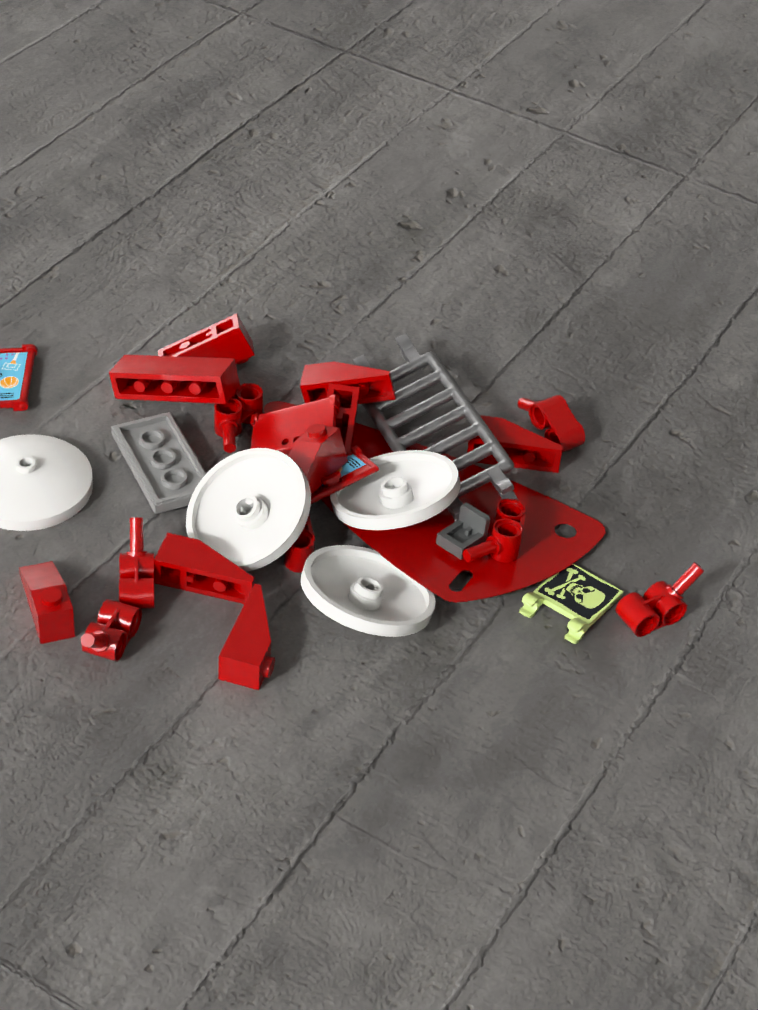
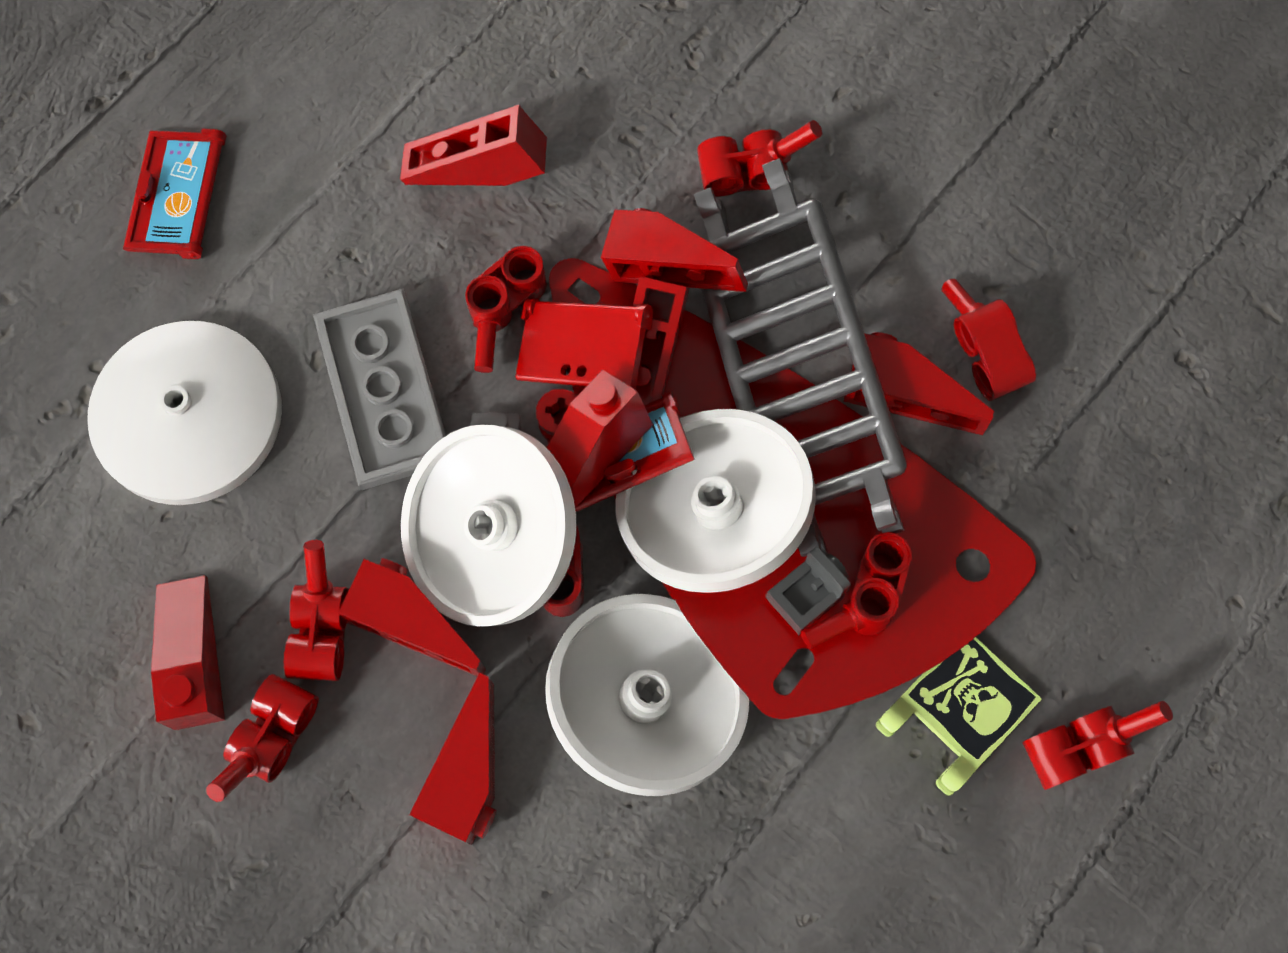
camera: 15 degrees right, 30 degrees up
(175, 378) = (413, 232): red brick -> none
(385, 350) = (735, 171): none -> red beam

